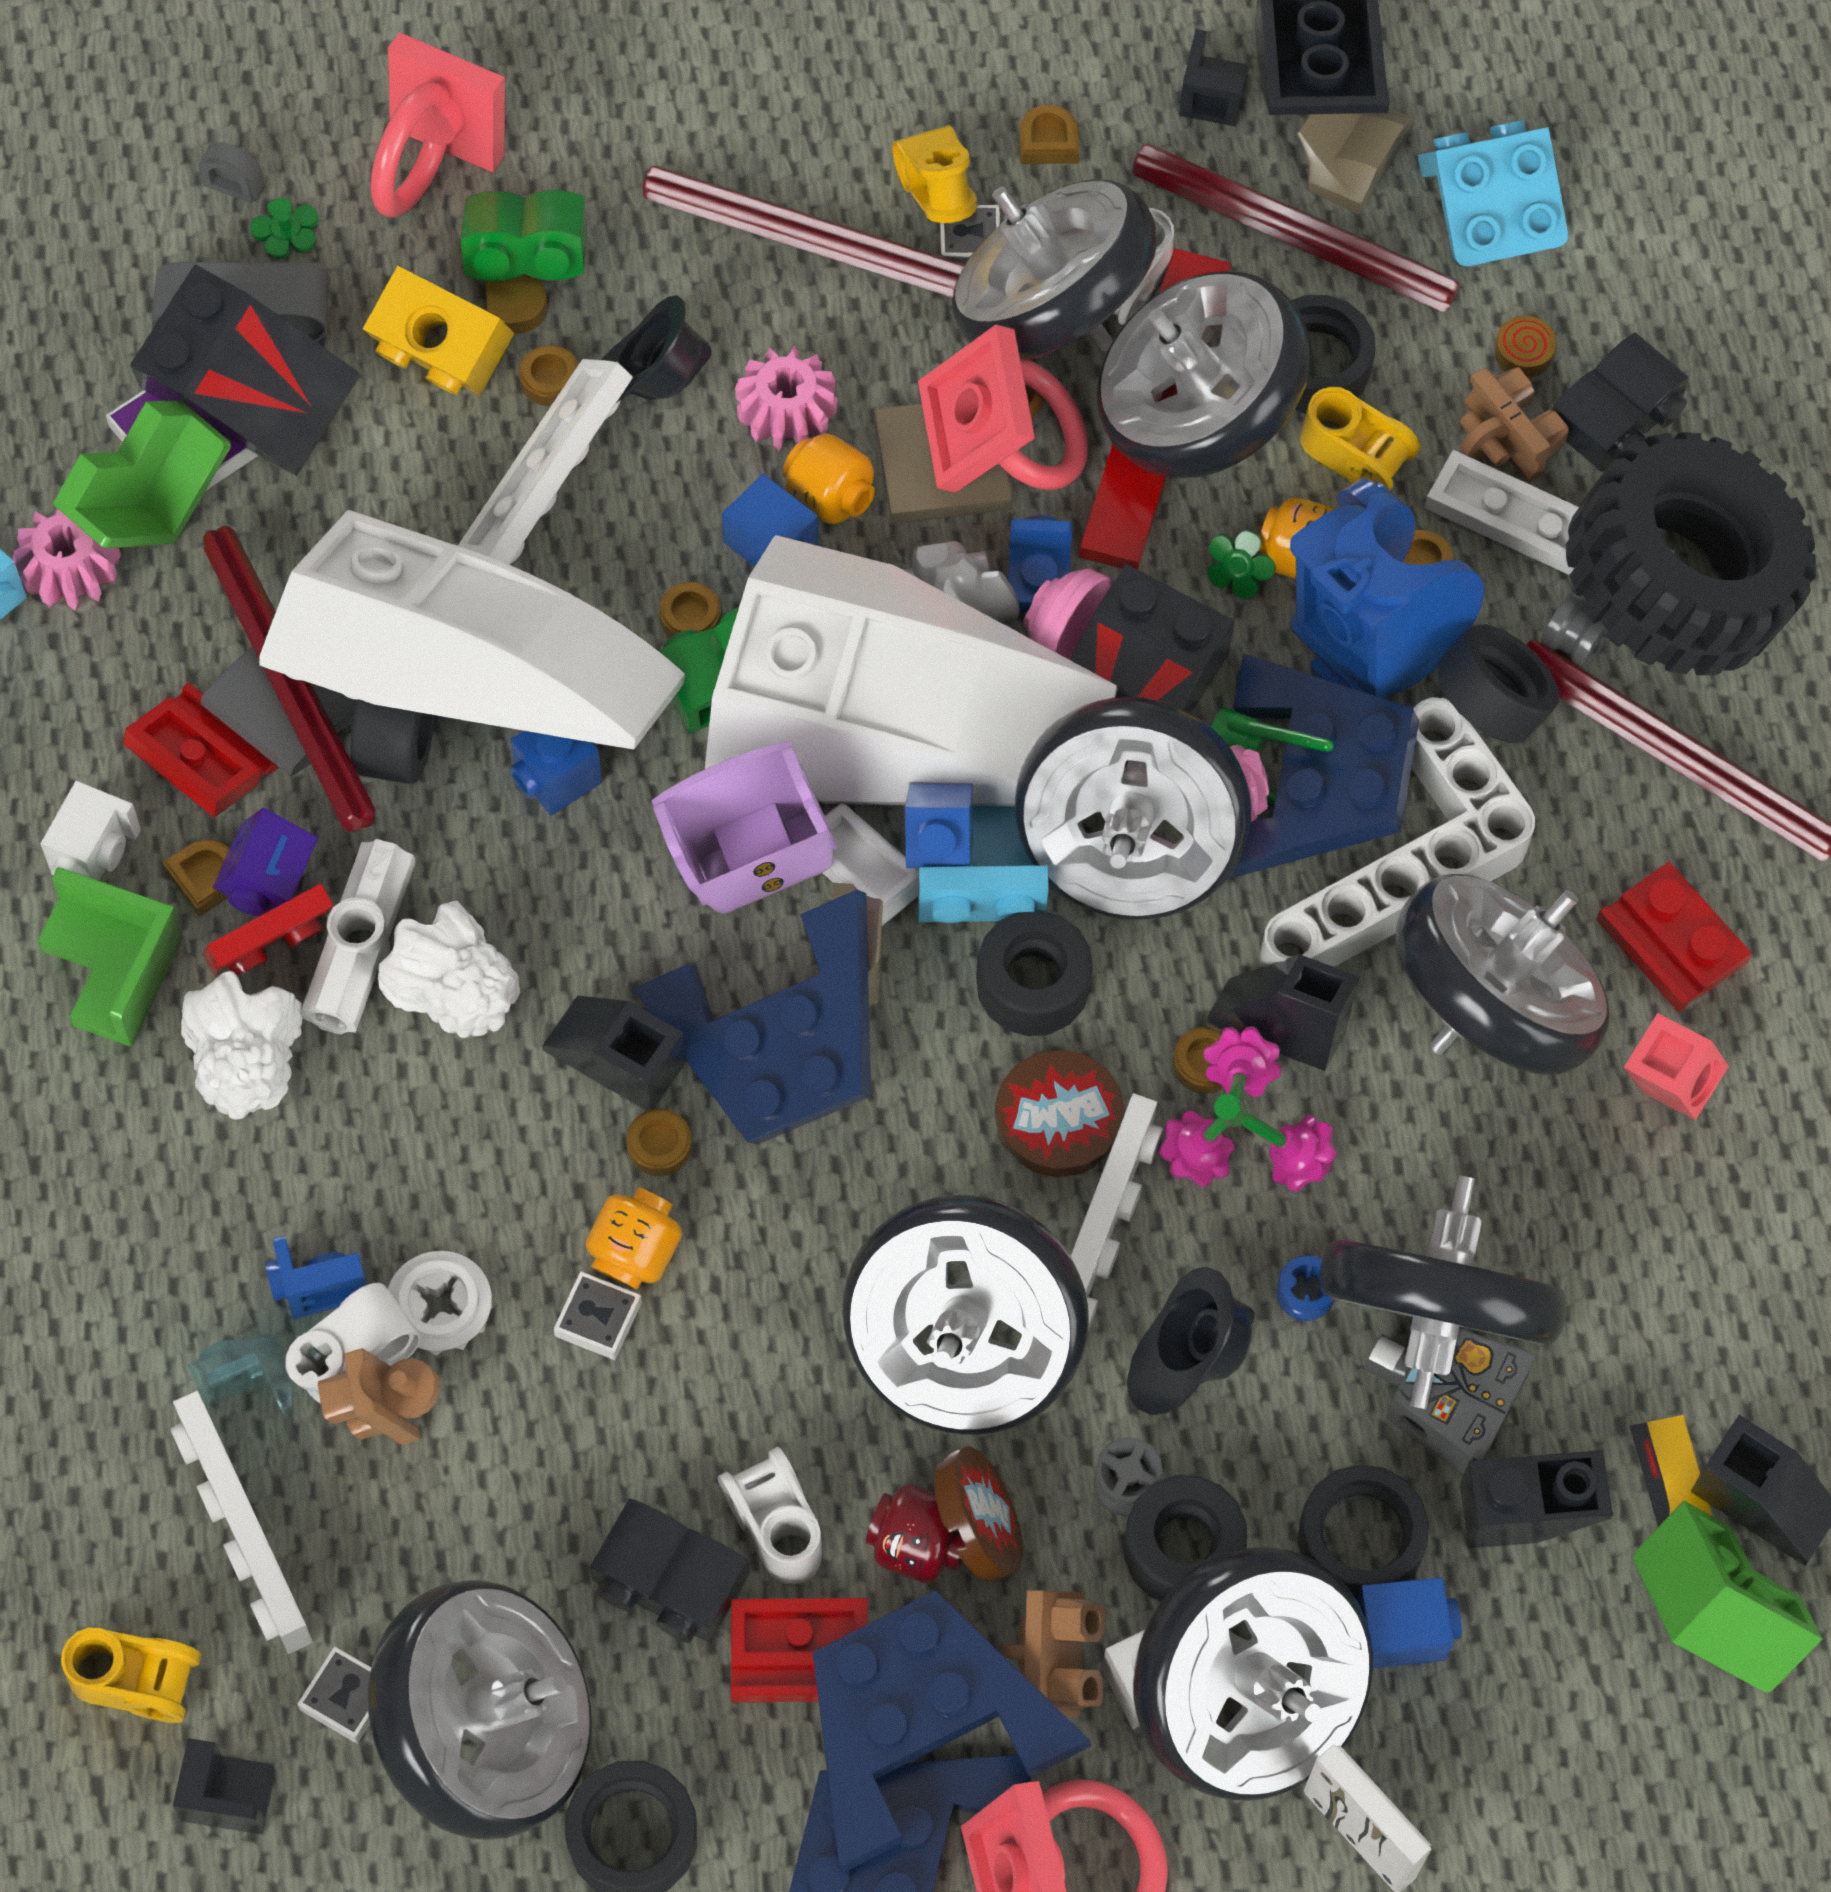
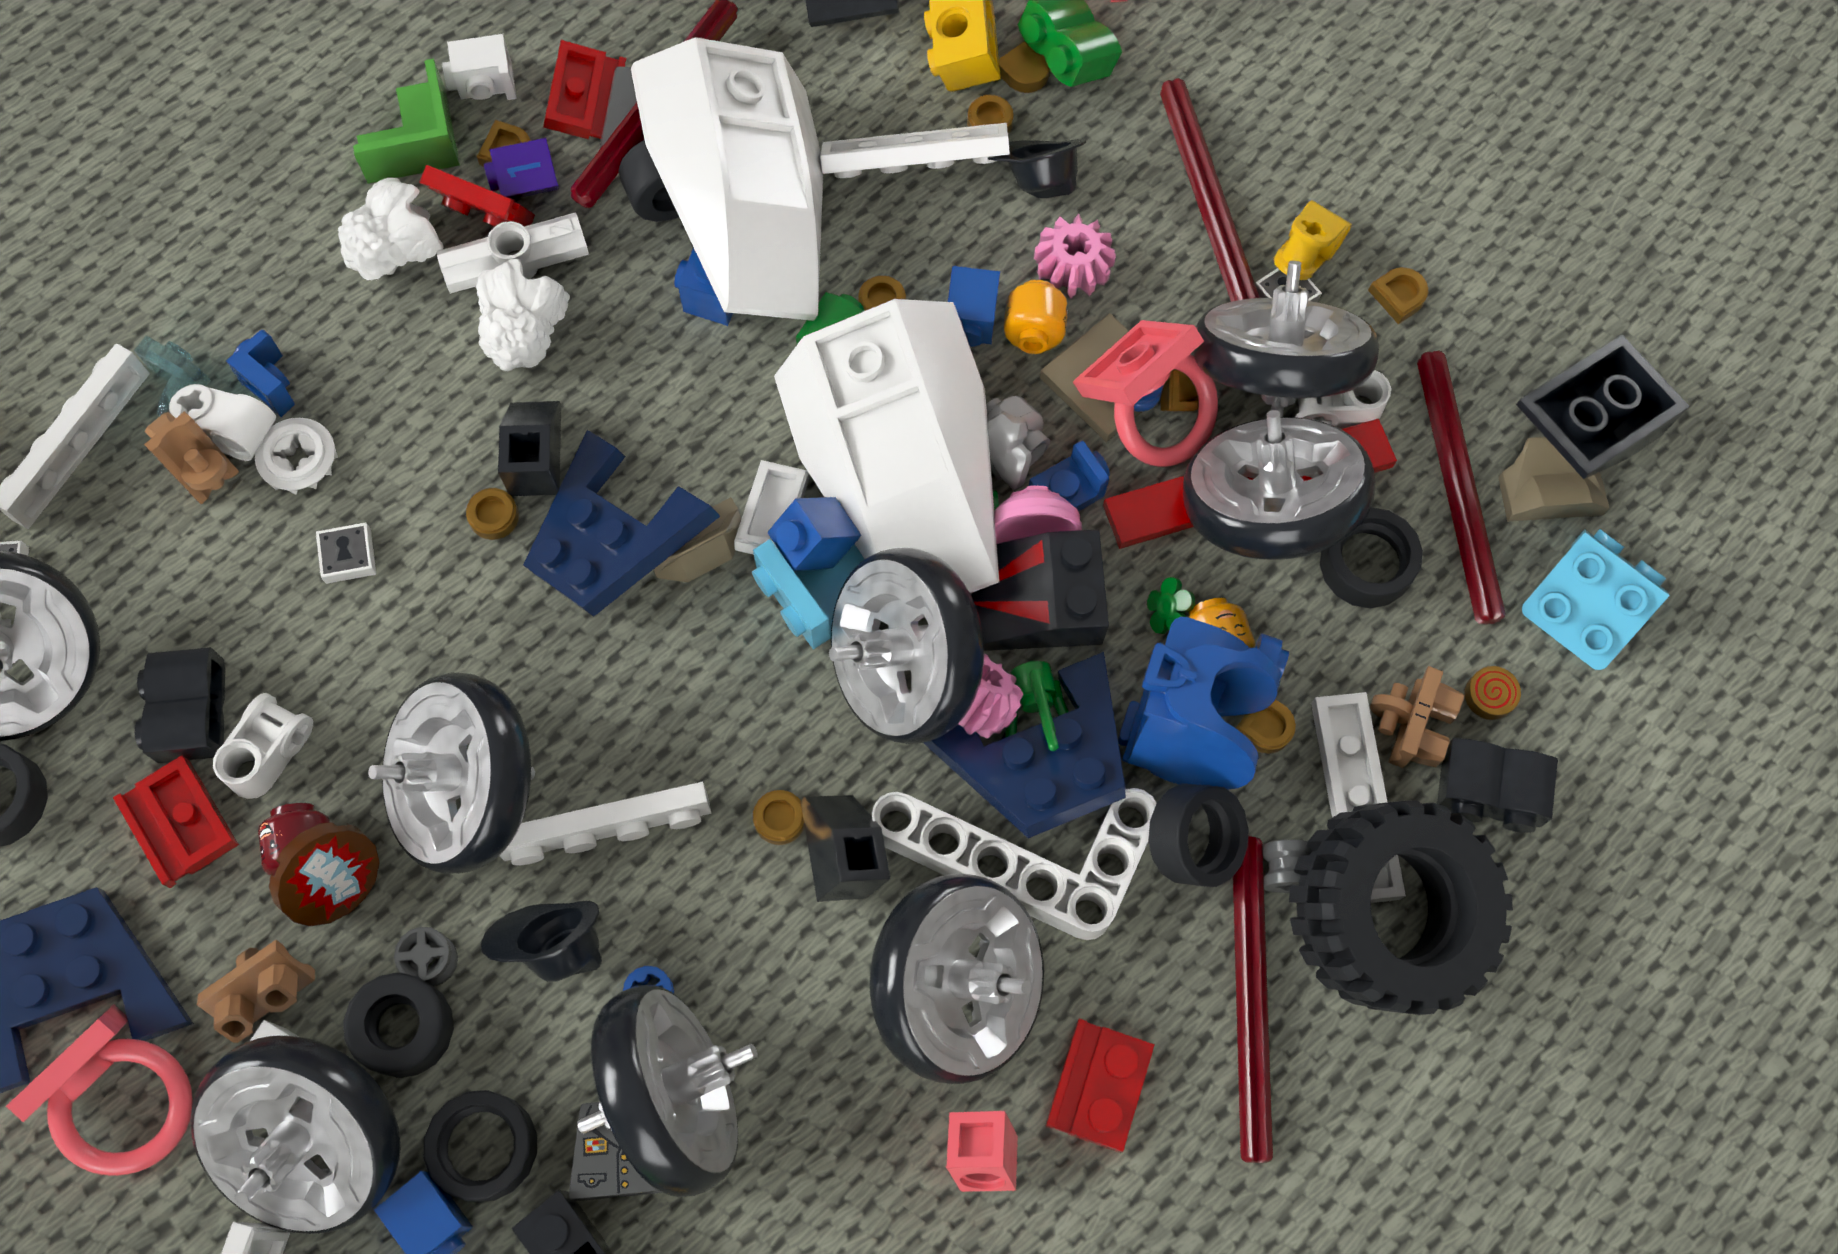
camera: 55 degrees right, 5 degrees up
(633, 1238) = (404, 538): light orange head -> none
(746, 828) = (737, 416): lavender piece -> none
(907, 1691) = (166, 907): dark blue wing -> none
(1025, 1009) = (753, 634): black tyre -> none
(1059, 1112) = (674, 743): tile -> none
(1196, 1144) = (704, 854): dark pink plant -> none
(1212, 86) = (1522, 362): black panel -> none
(1362, 441) = (1323, 634): yellow piece -> none

